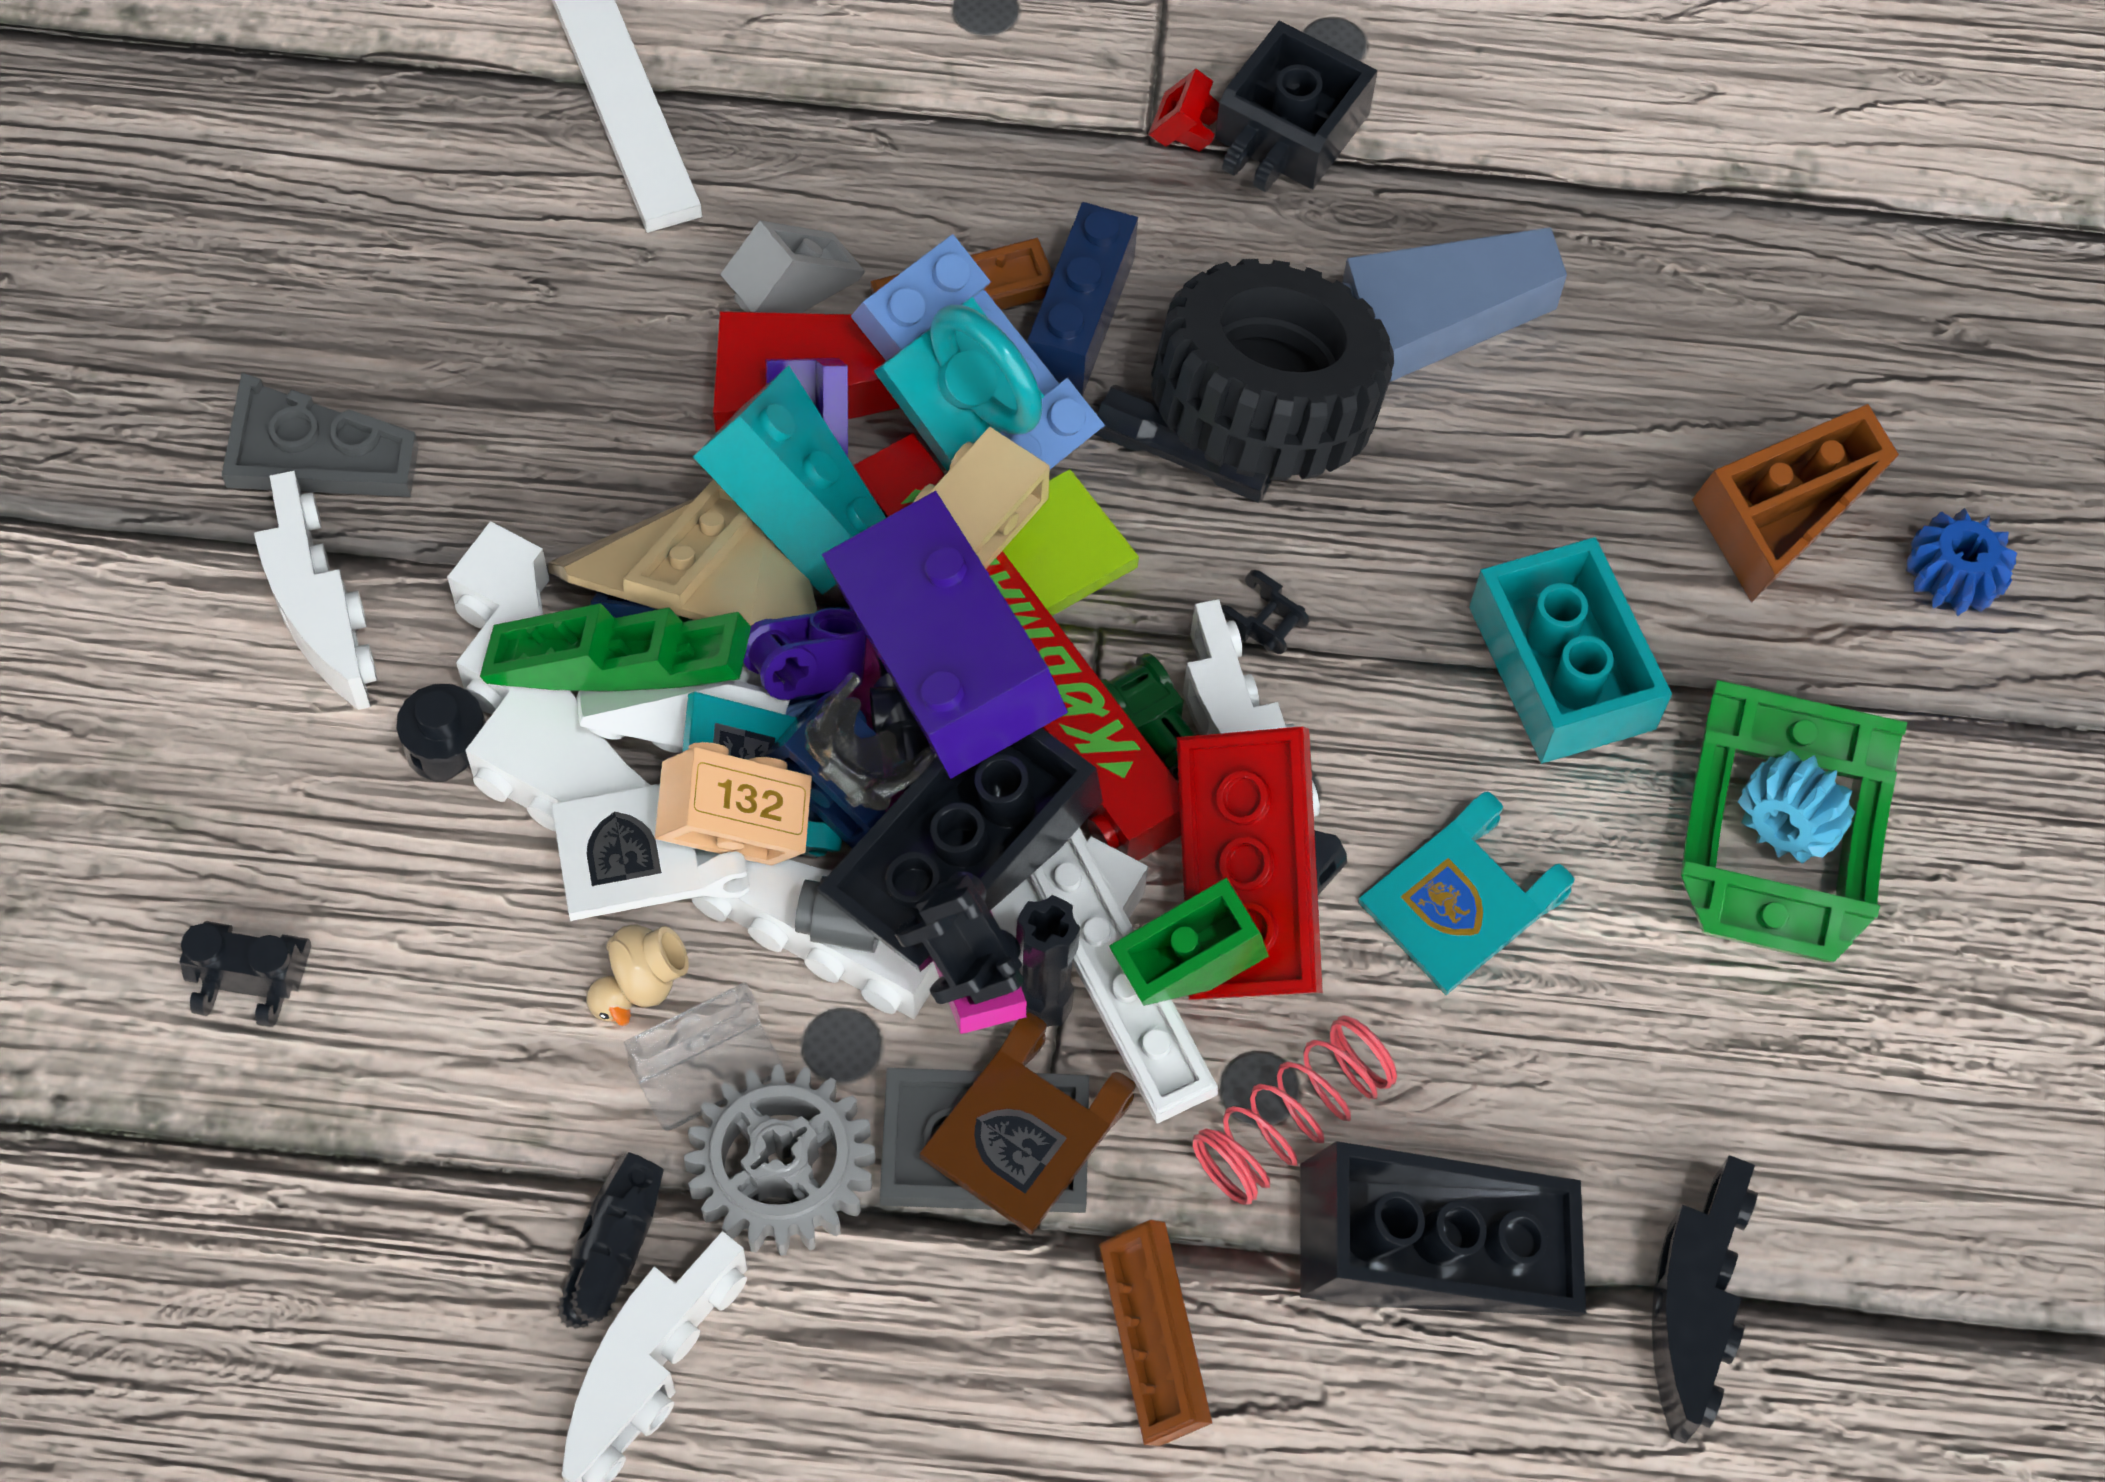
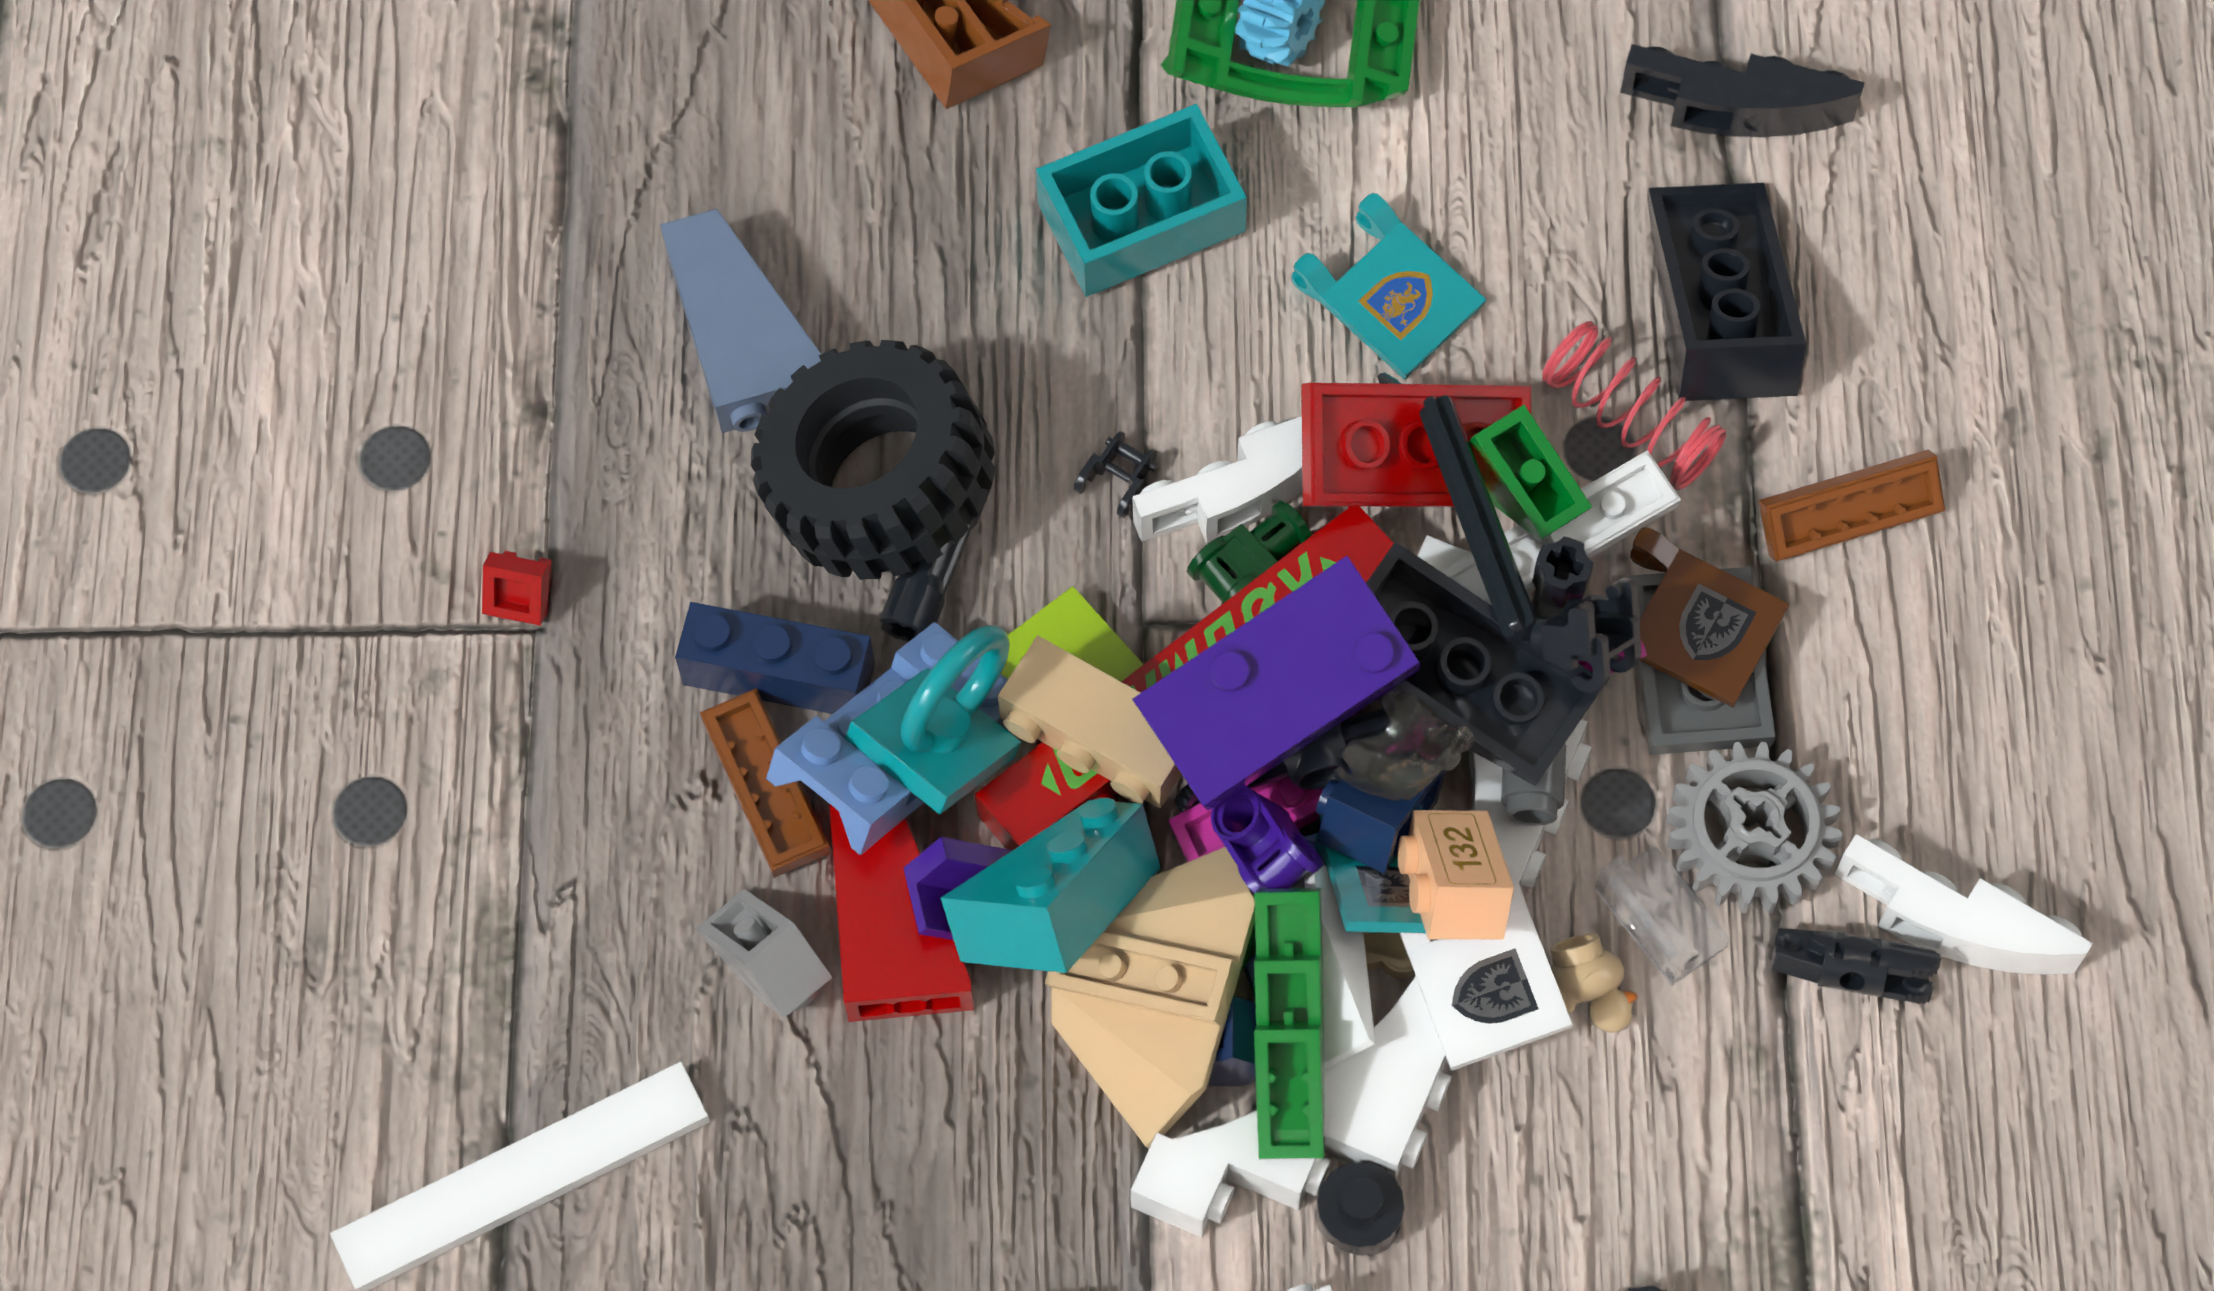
camera: 90 degrees left, 5 degrees up
(1127, 867) = (1478, 518): none -> black axle
(1293, 108) = (519, 474): black hinge -> none

